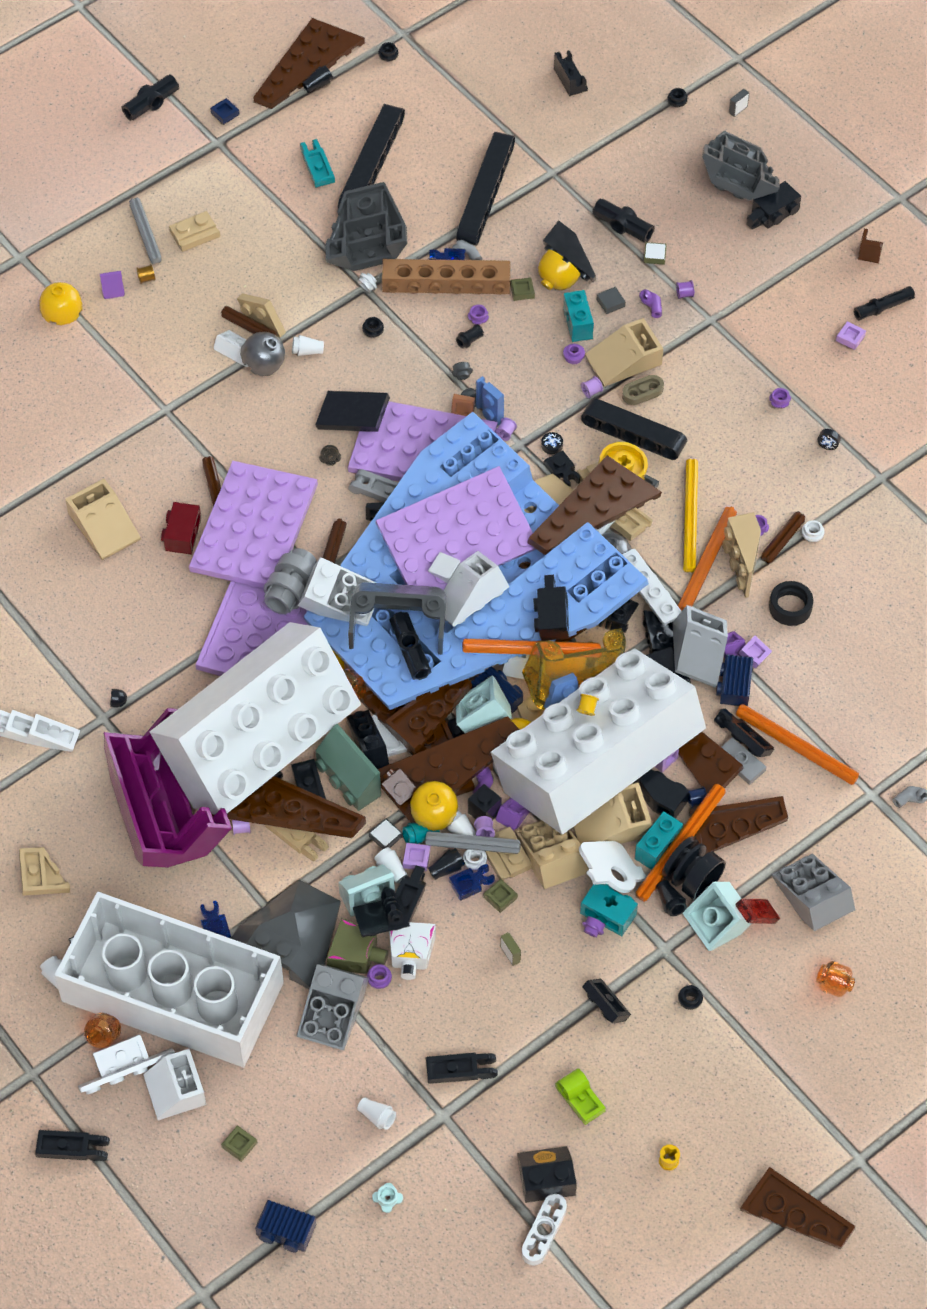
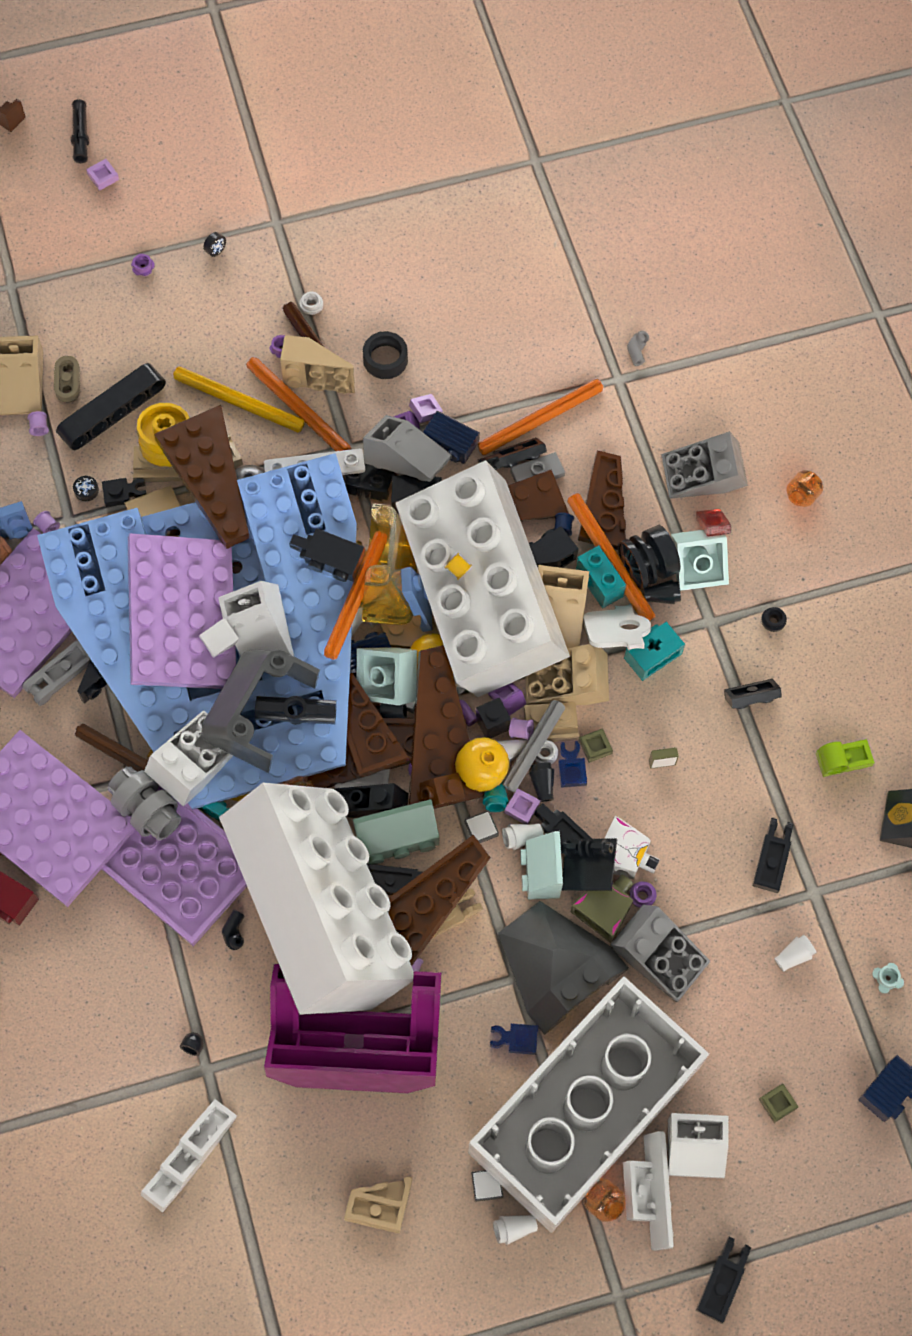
camera: 70 degrees left, 10 degrees up
(593, 927) = (667, 673): medium lavender plate -> none

